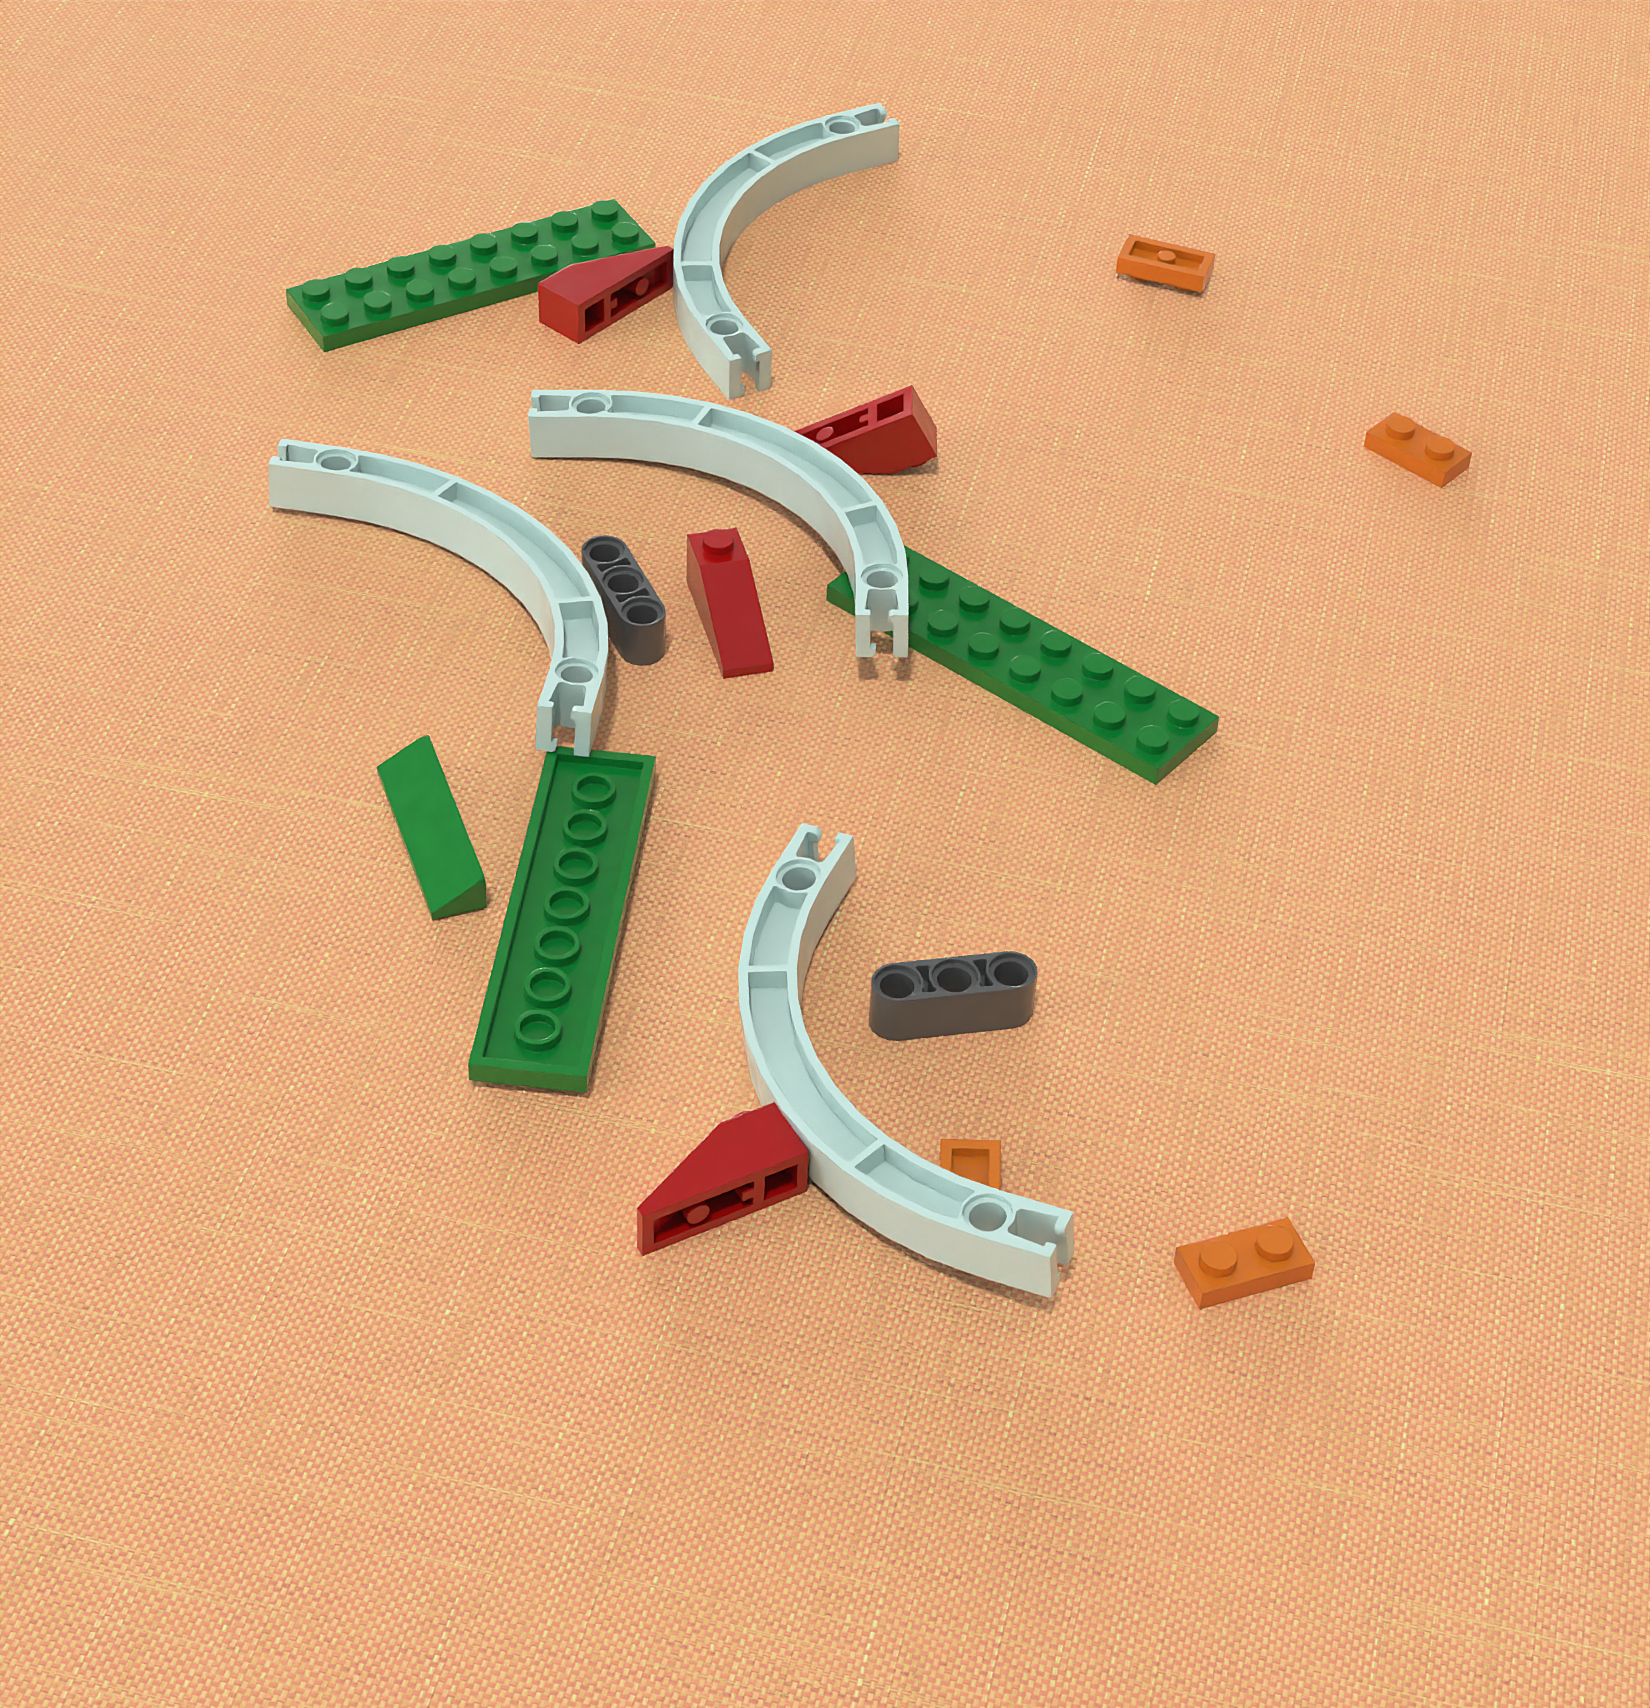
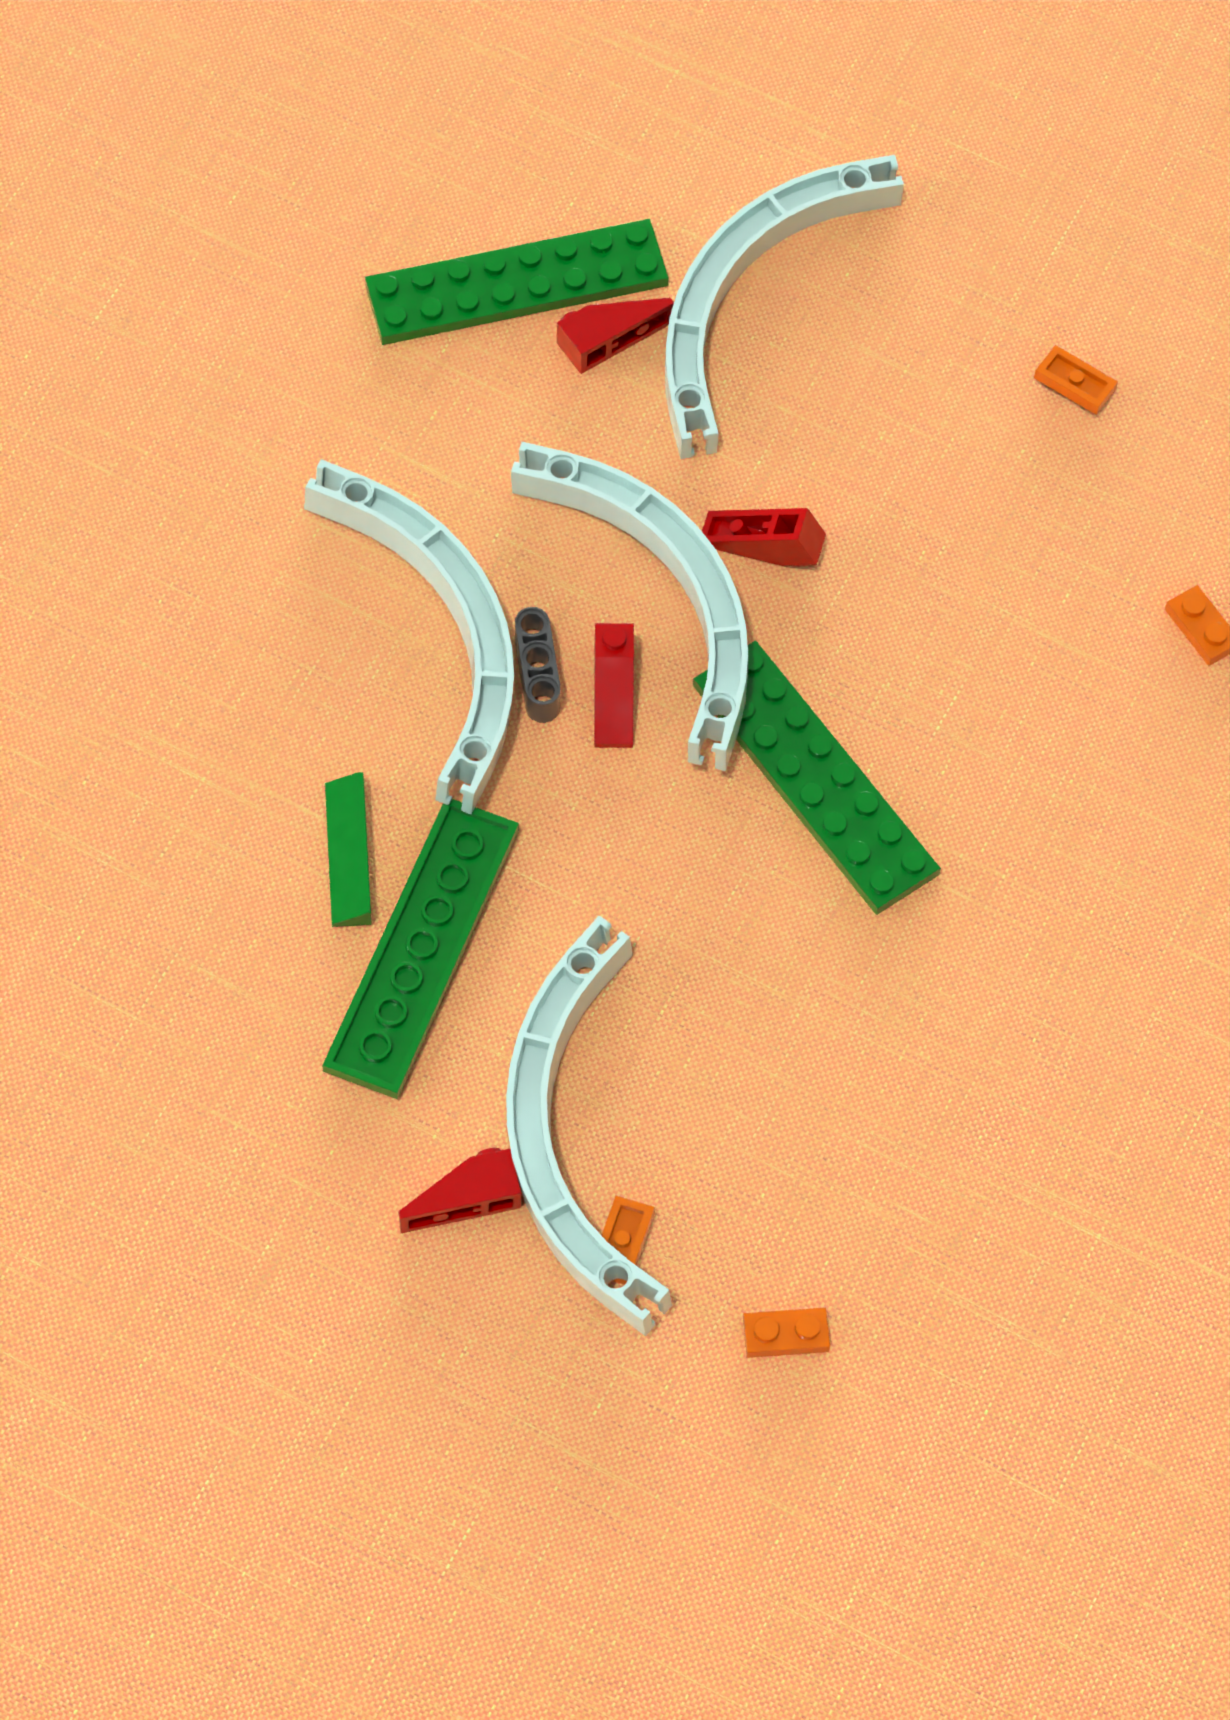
camera: 15 degrees right, 20 degrees up
(952, 995) = (646, 1066): dark grey beam -> none

